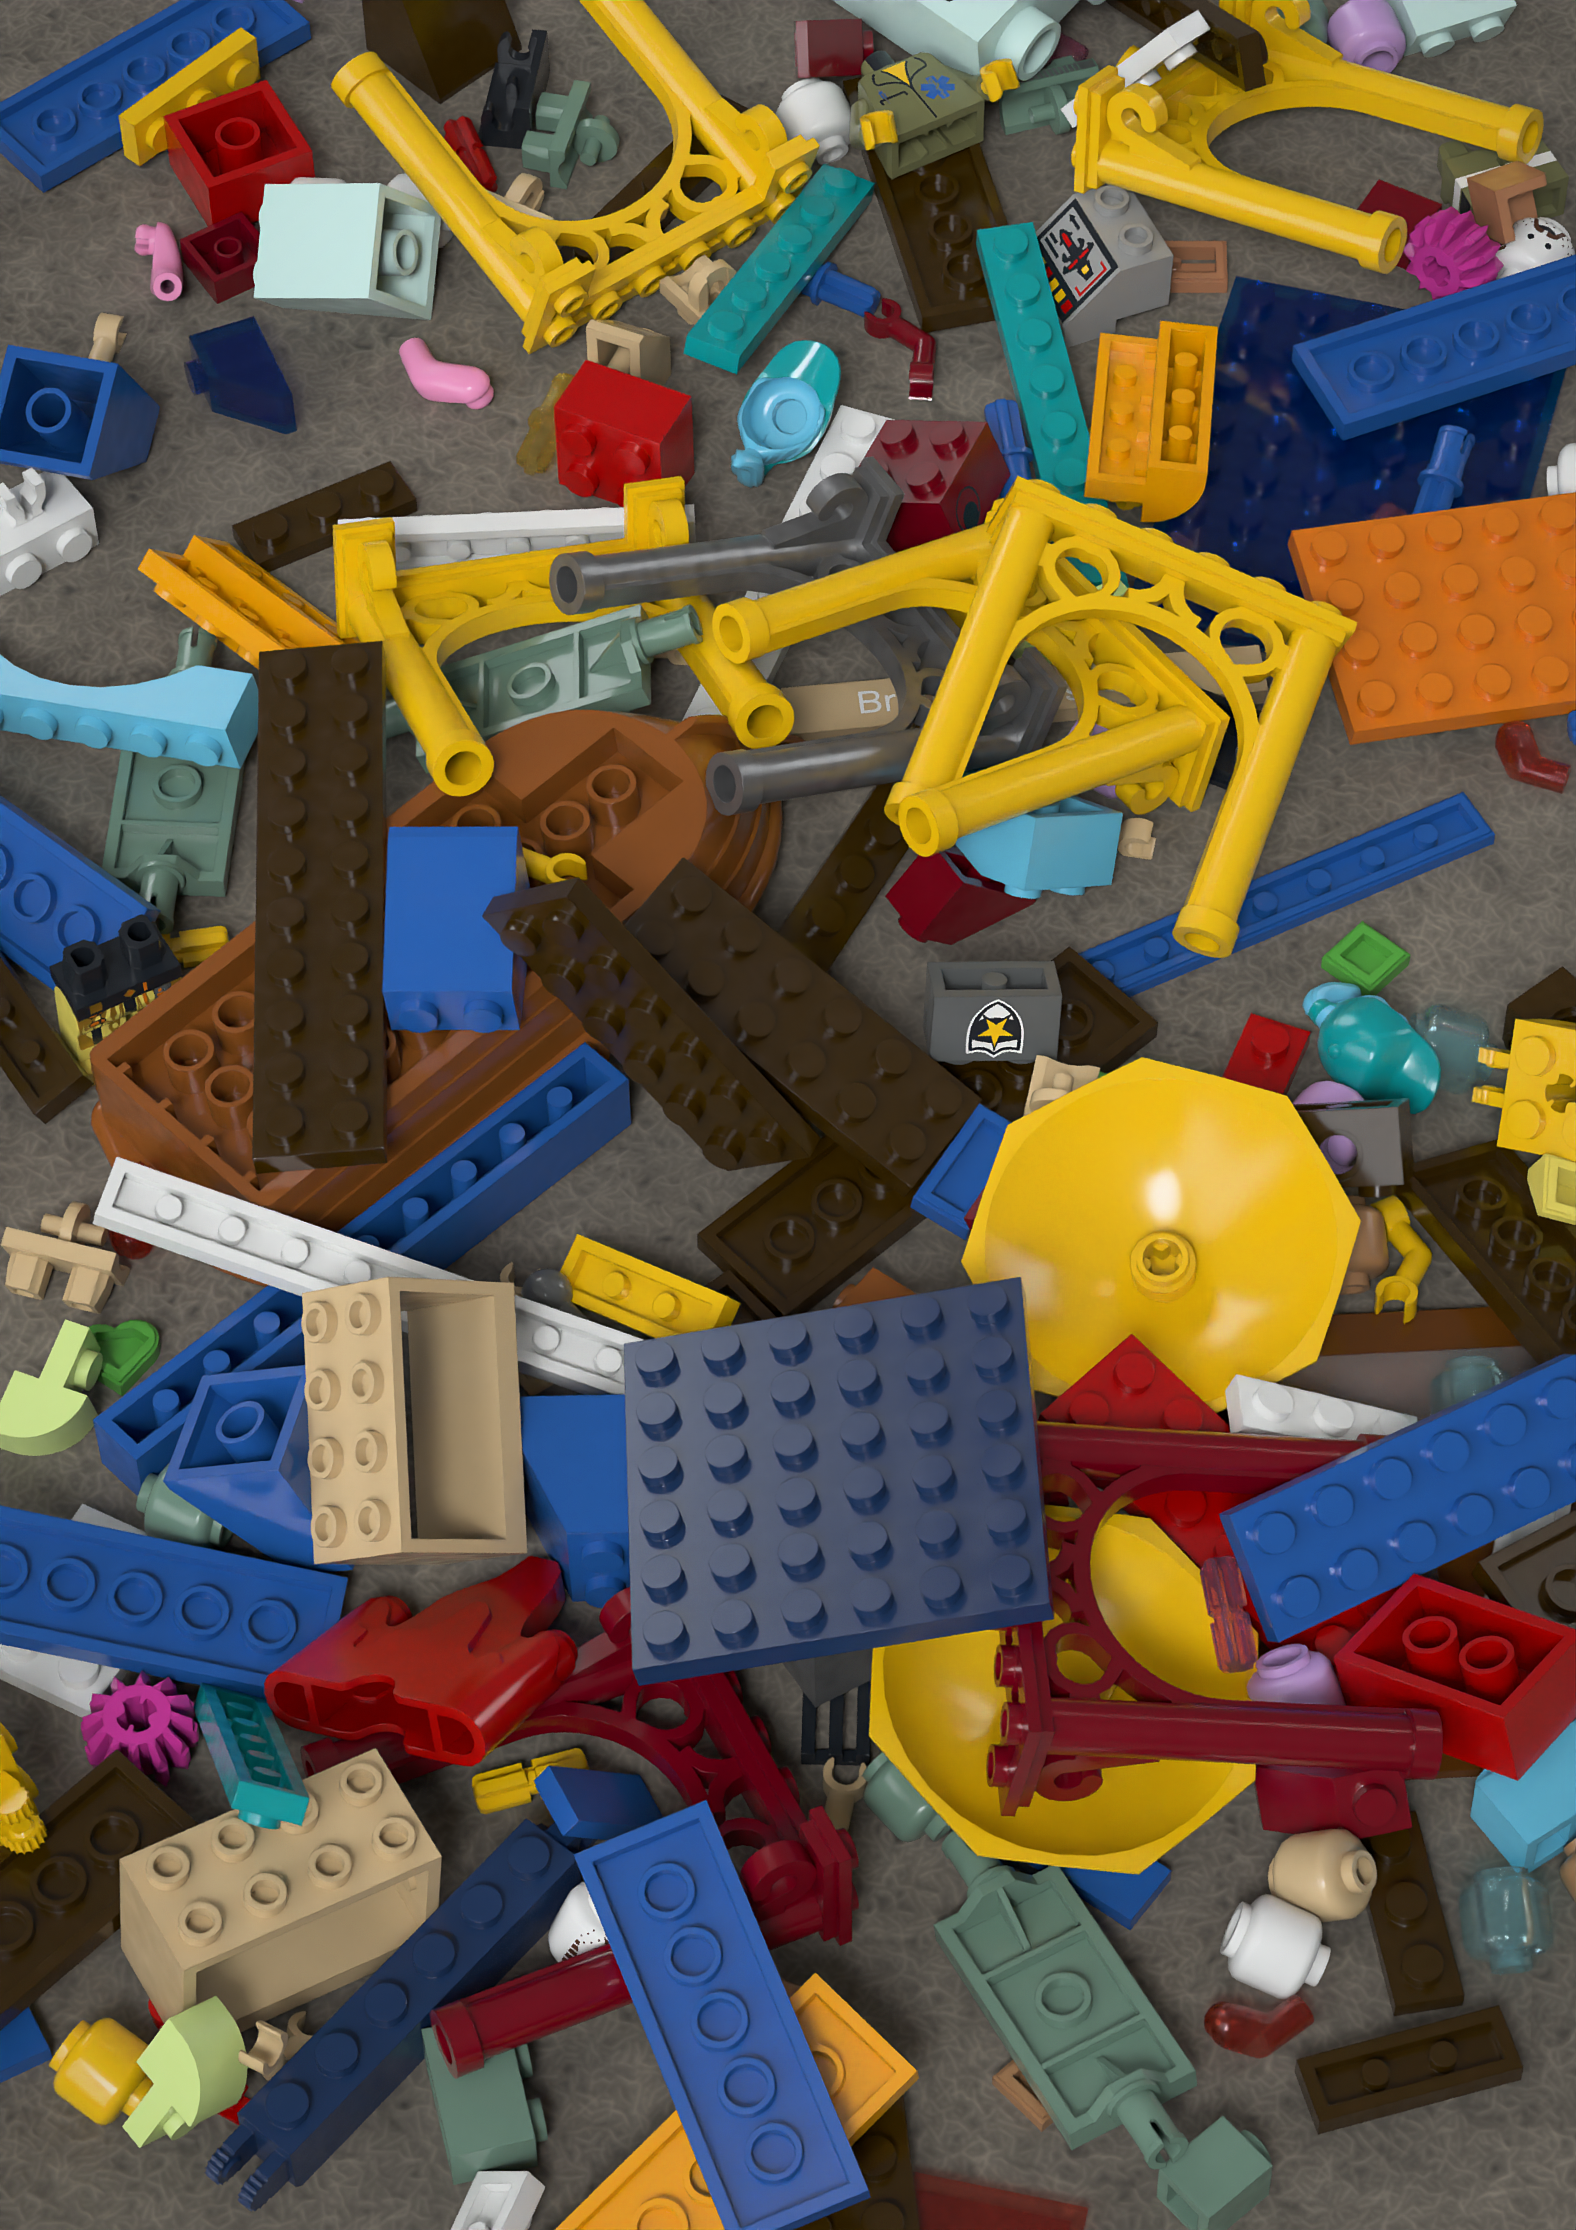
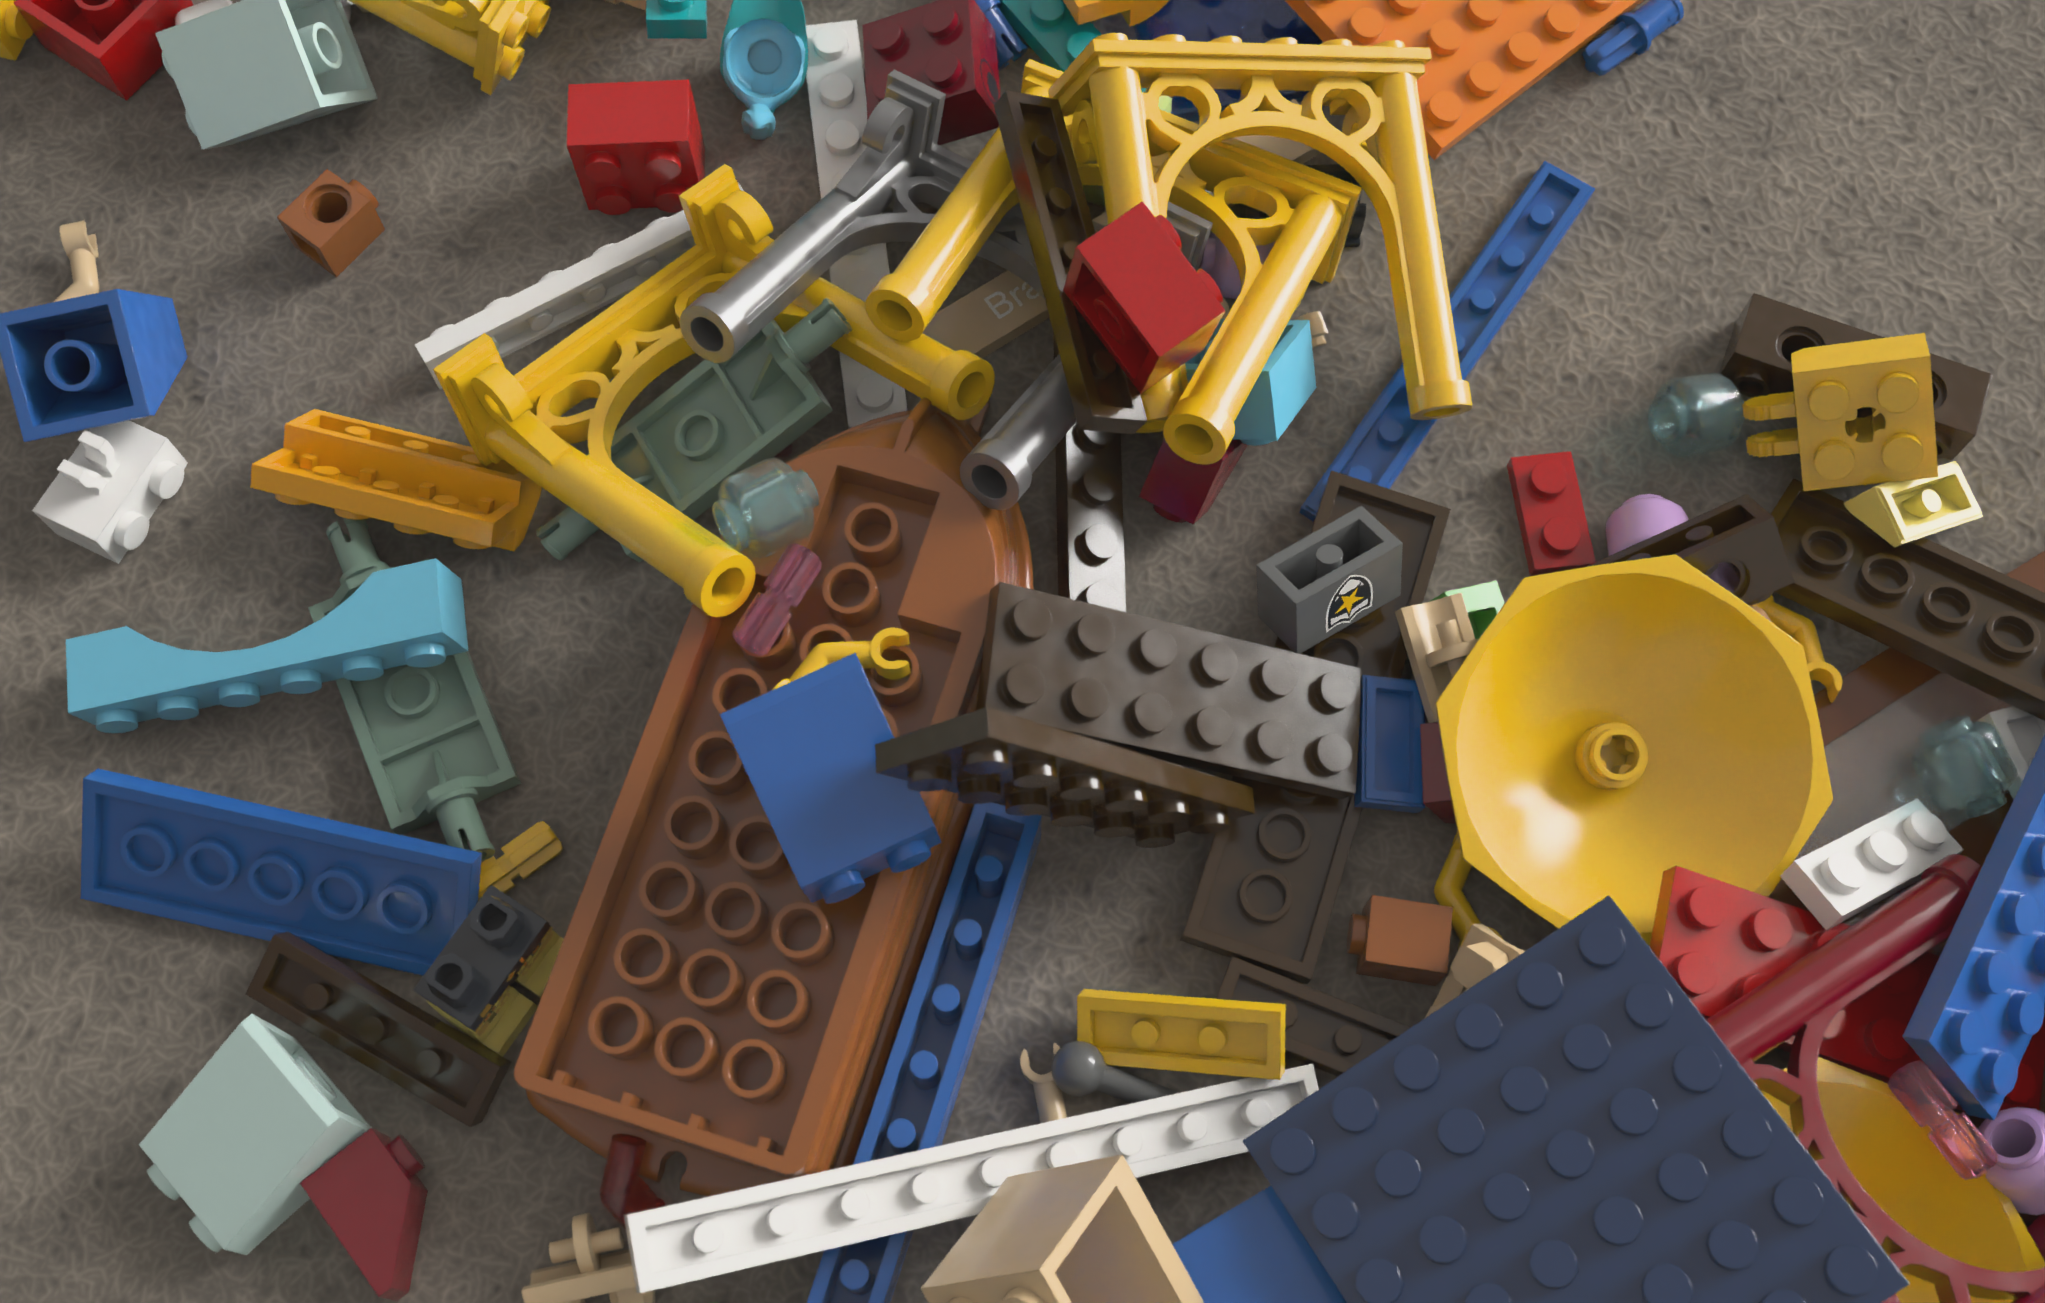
camera: 30 degrees left, 15 degrees up
(166, 263) = (98, 151): bright pink arm -> none
(223, 256) = (148, 117): dark red piece -> none
(240, 376) = (233, 232): clear blue slope -> none
(307, 522) = (386, 344): dark brown plate -> none
(320, 909) = (668, 809): dark brown plate -> none
(331, 400) = (312, 225): none -> dark orange brick
(444, 380) = (425, 155): bright pink arm -> none
(512, 794) = (768, 611): none -> clear pink piece
(530, 726) = (765, 508): none -> clear light blue head
(540, 441) = (550, 155): clear yellow axle -> none
(629, 349) = (588, 56): tan slope -> none
(910, 656) = (1057, 223): none -> dark brown plate
(931, 687) = (1143, 295): none -> red brick
(1365, 960) = (1565, 358): bright green tile -> none
(1372, 1046) = (1641, 444): teal hair -> none
(1523, 759) = (1572, 108): clear red arm -> none

